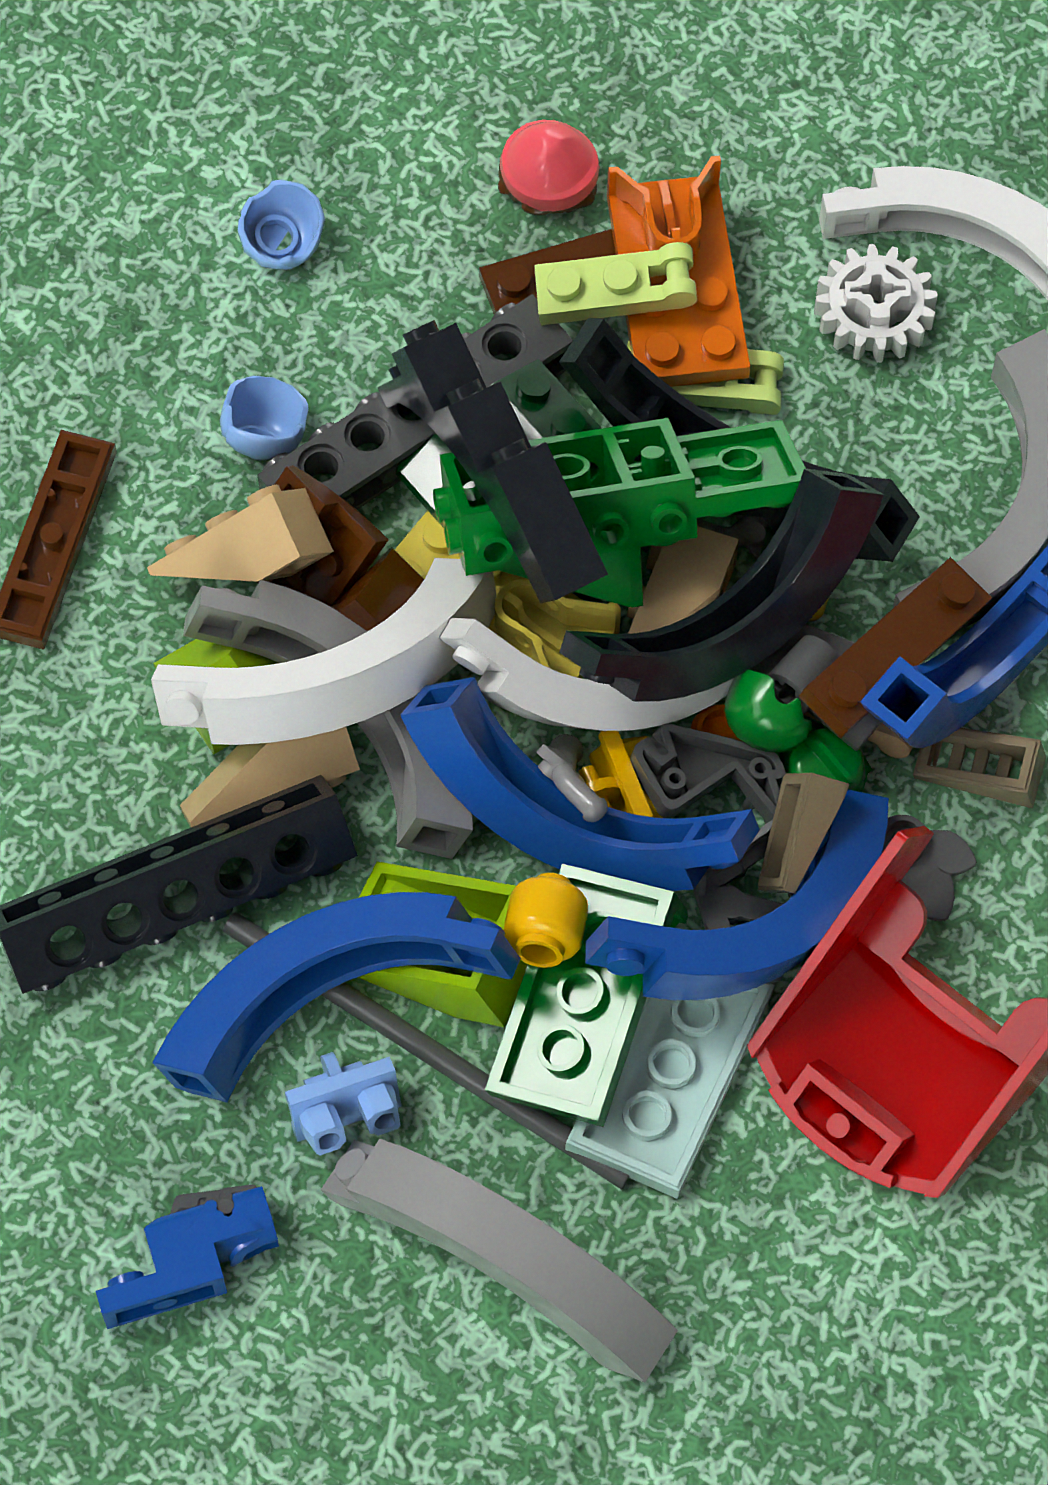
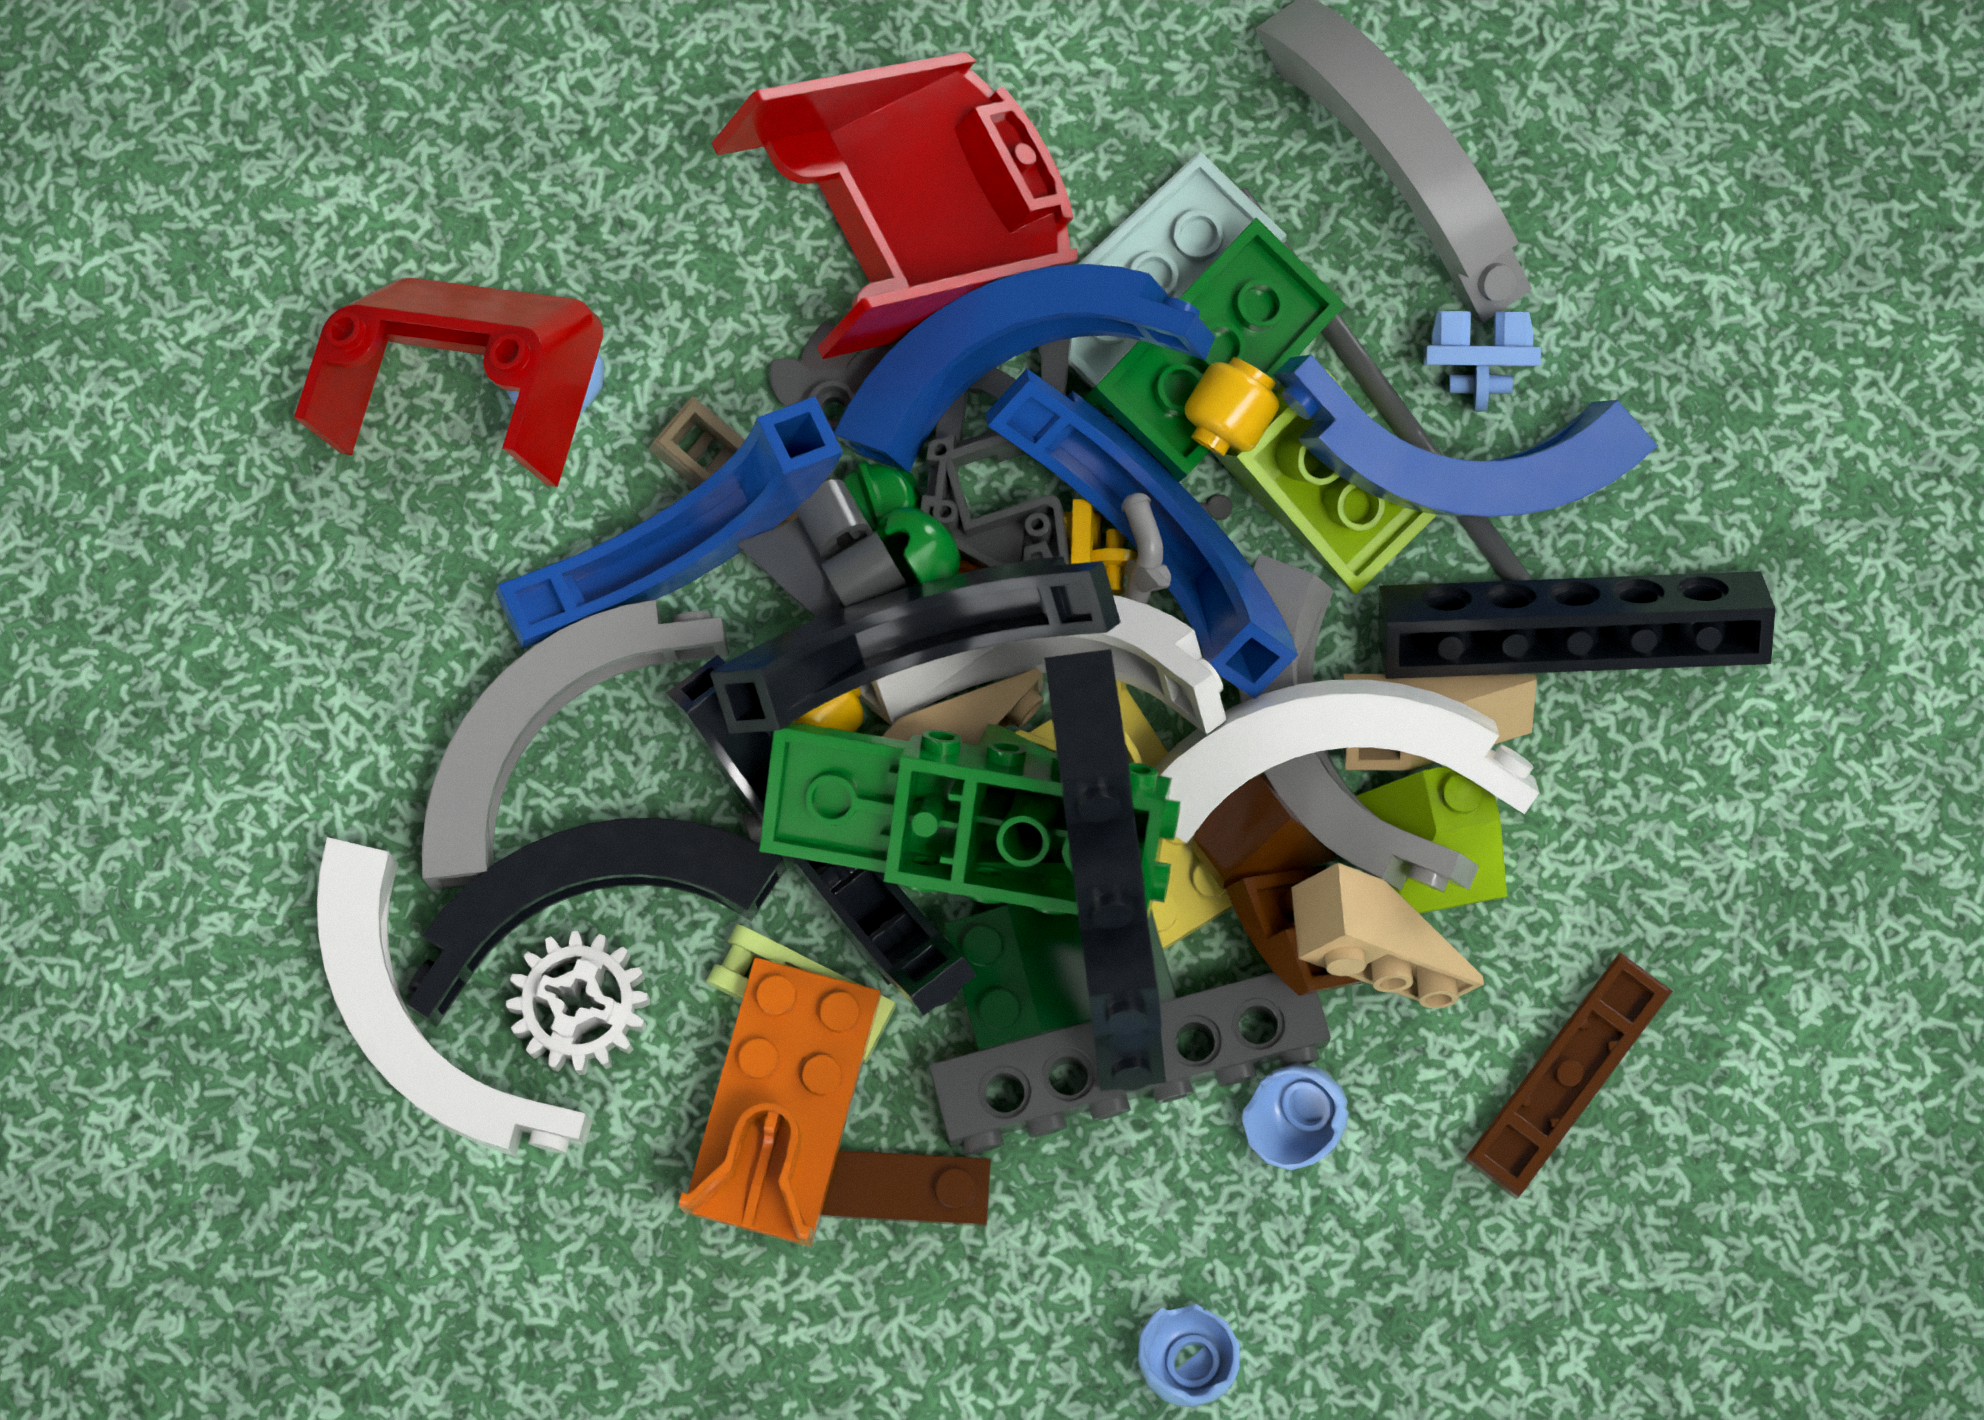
camera: 155 degrees left, 10 degrees up
(188, 1253) = (1679, 268): blue plate -> none
(549, 168) = (858, 1315): coral hair -> none
(615, 285) = (862, 1097): yellowish green plate -> none
(799, 825) = (923, 429): dark tan slope -> none
(903, 417) = (577, 862): none -> black arch
(909, 630) = (760, 554): reddish brown plate -> none

